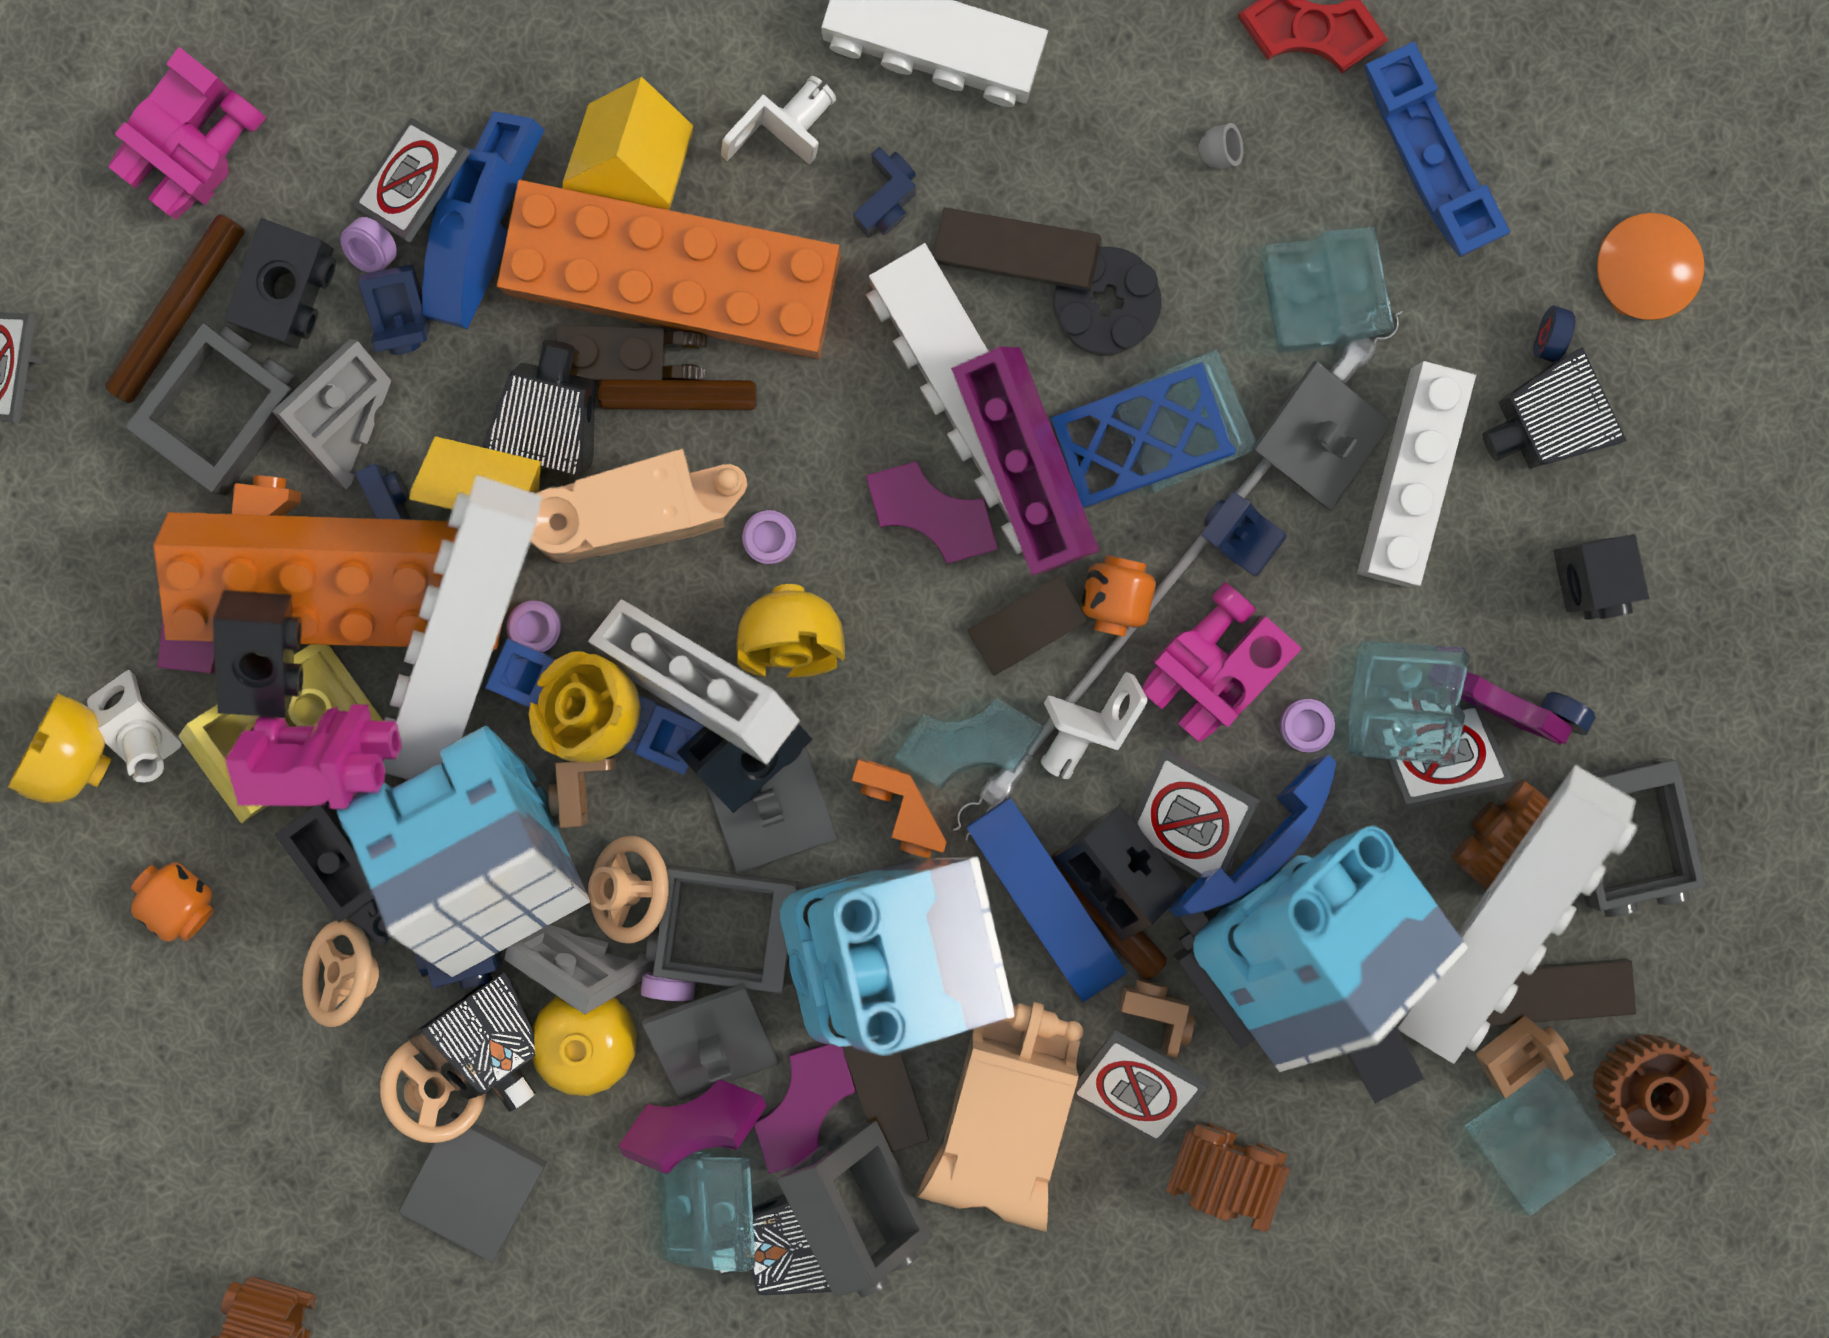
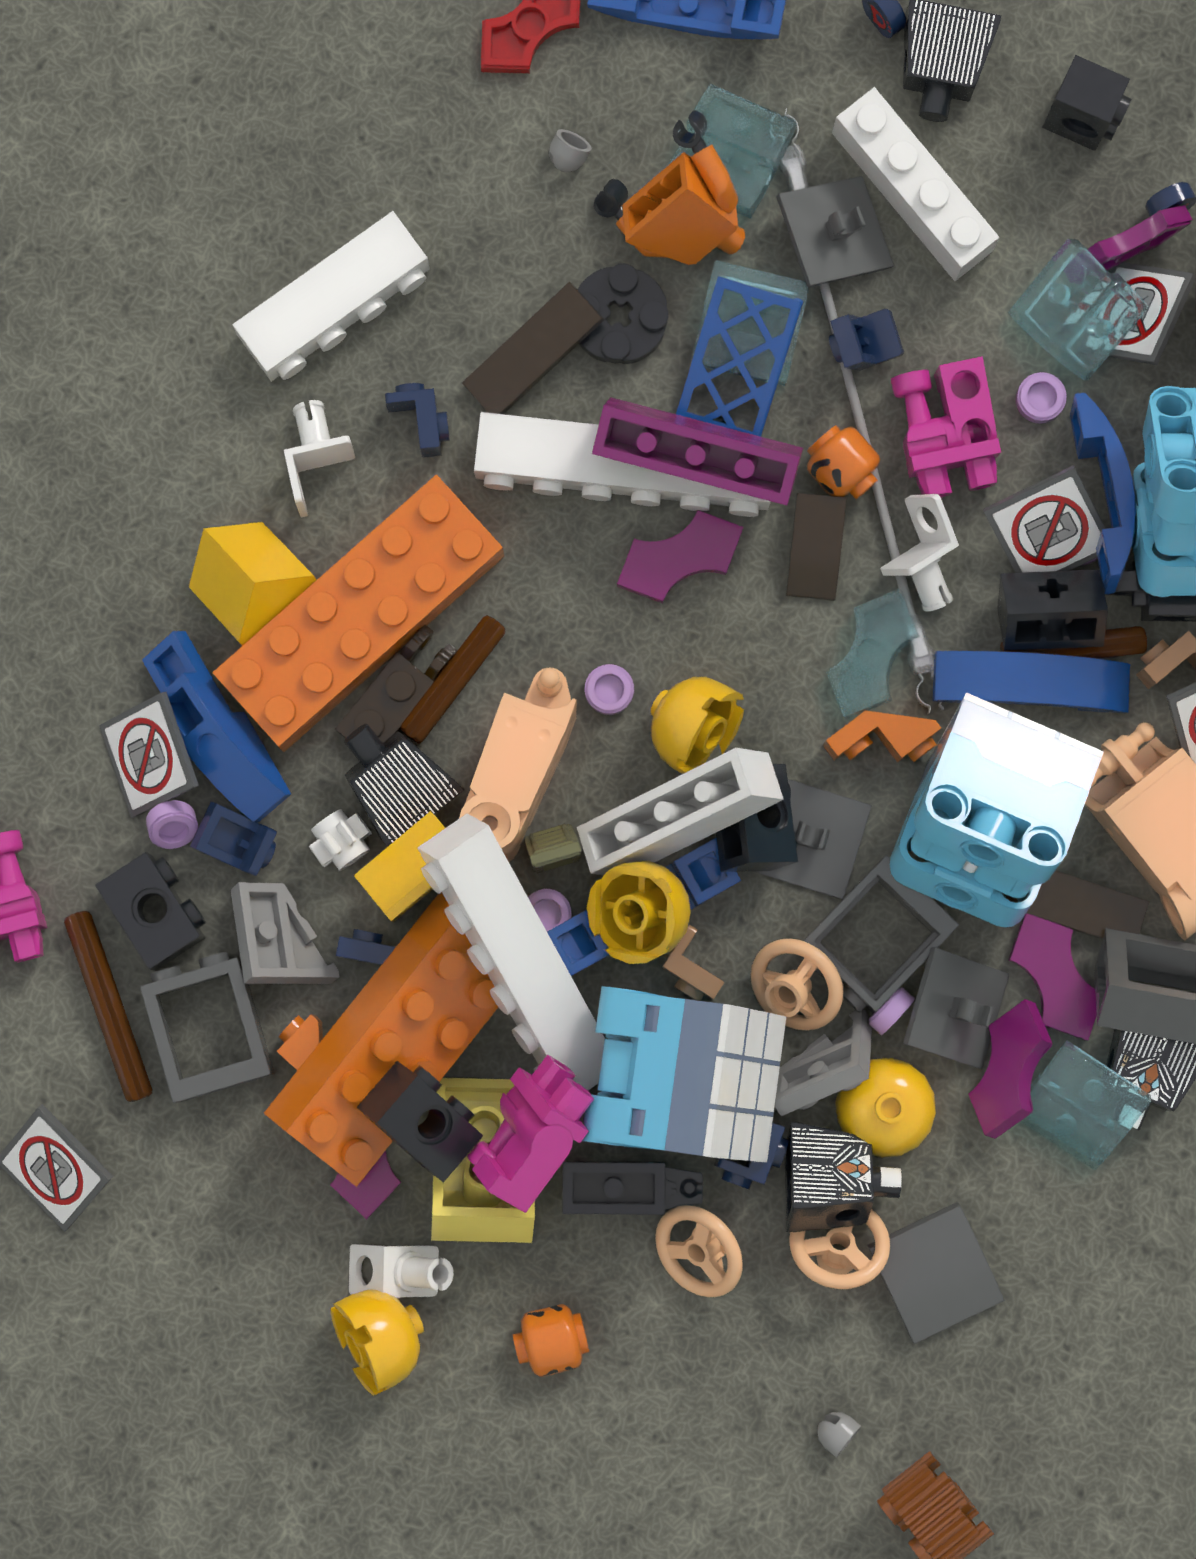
camera: 55 degrees left, 5 degrees down
(274, 1206) = (837, 1432): none -> light grey hinge
(462, 401) = (340, 839): none -> white gear
(589, 590) = (553, 848): none -> olive slope
(1239, 285) = (683, 208): none -> orange torso

